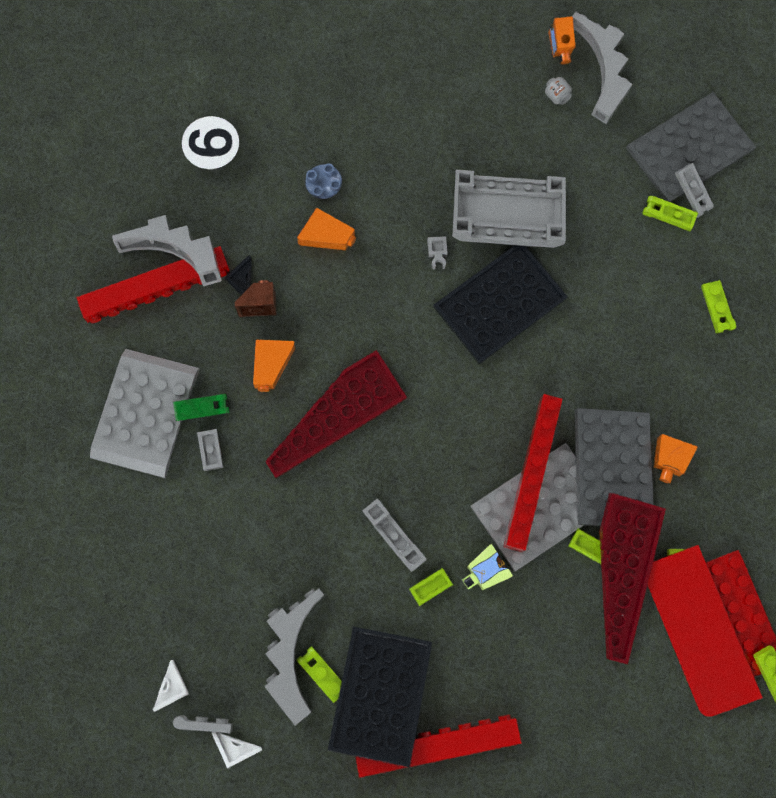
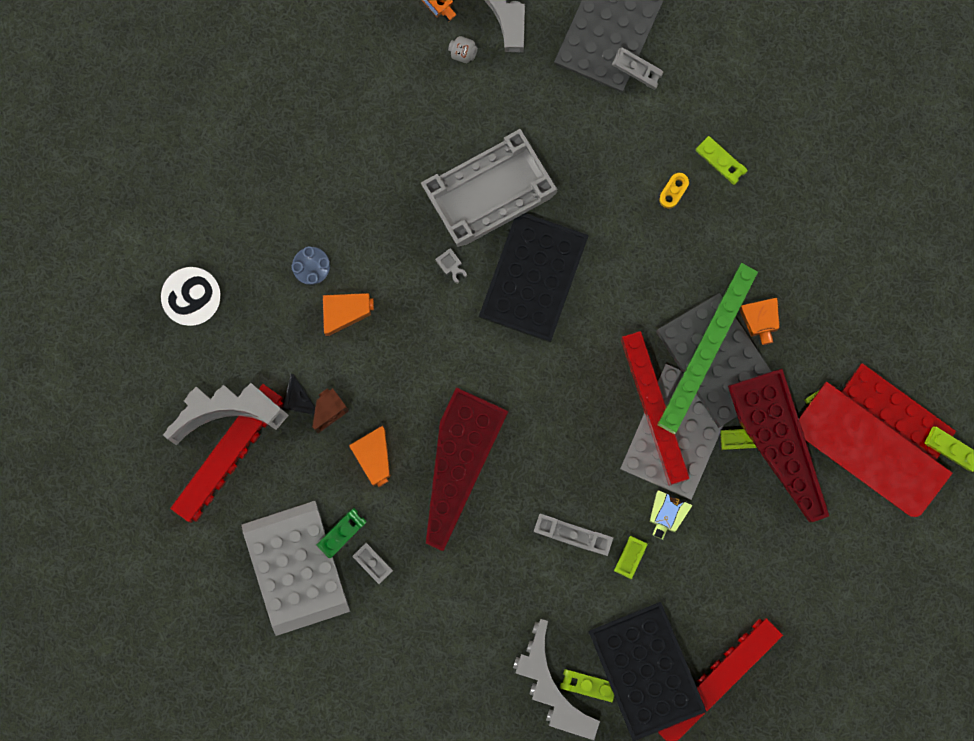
camera: 25 degrees left, 5 degrees up
(609, 451) = (707, 348): none -> bright green plate
(662, 306) = (673, 190): none -> yellow plate
(670, 213) = (630, 101): lime plate -> none

